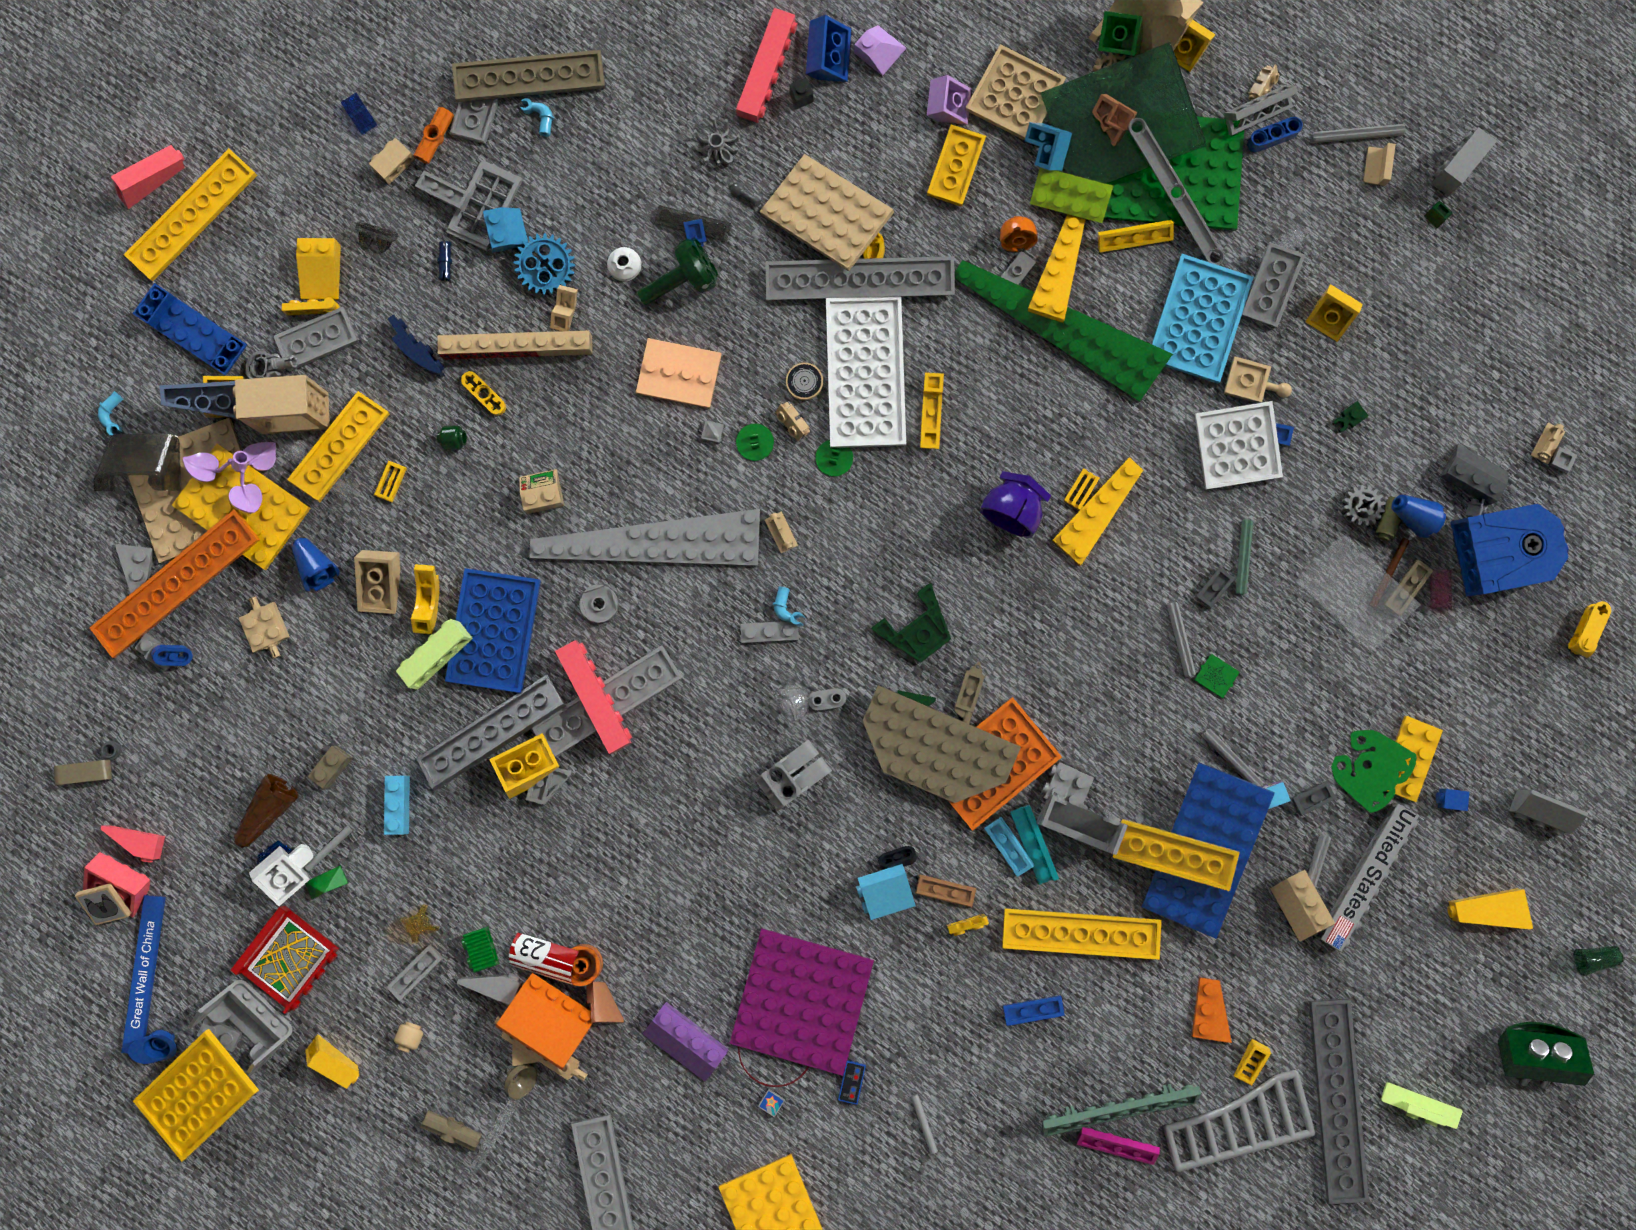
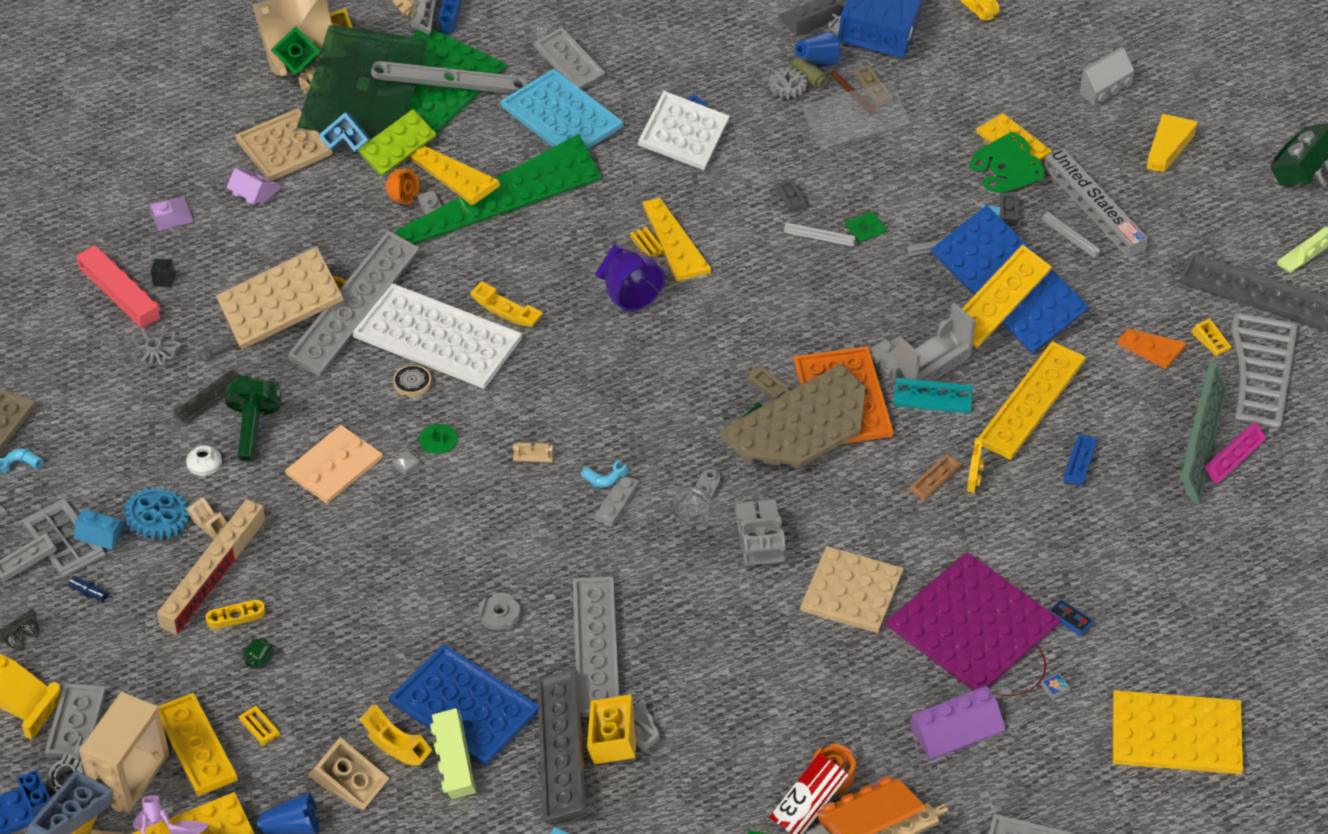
camera: 65 degrees left, 35 degrees down
(415, 350) = (157, 646): dark blue slope -> none
(541, 491) = (363, 608): tan slope -> none
(593, 696) = (585, 643): coral brick -> none
(602, 1004) = (873, 770): nougat slope -> none
(695, 229) = (217, 390): blue bracket -> none
(696, 540) = (496, 514): light grey wing -> none
(782, 881) = (852, 589): none -> tan plate
(797, 428) = (441, 403): tan hinge -> none
(828, 49) = (140, 242): blue slope -> none
(833, 460) = (496, 392): green piece -> none
(885, 892) = (909, 510): medium azure brick -> none
(904, 855) = (885, 494): black plate -> none
(922, 635) = (696, 394): dark green wing -> none
(924, 1124) = (1140, 582): light grey bar -> none
(956, 165) = (311, 204): yellow plate -> none
(1009, 846) = (923, 414): medium azure plate -> none
(1113, 117) = (358, 85): nougat slope -> none
(1135, 236) = (462, 122): yellow plate -> none
(1244, 557) = (778, 169): sand green axle -> none
(1249, 380) = (635, 106): tan plate -> none
(1302, 905) = (1094, 244): tan slope -> none
(1334, 313) = (620, 37): yellow slope -> none
(1352, 415) = (710, 62): dark green plate -> none
(1441, 588) = (888, 70): clear pink plate -> none
(1452, 799) = (1063, 128): blue brick -> none
(1597, 959) = (1244, 102): clear green plant -> none

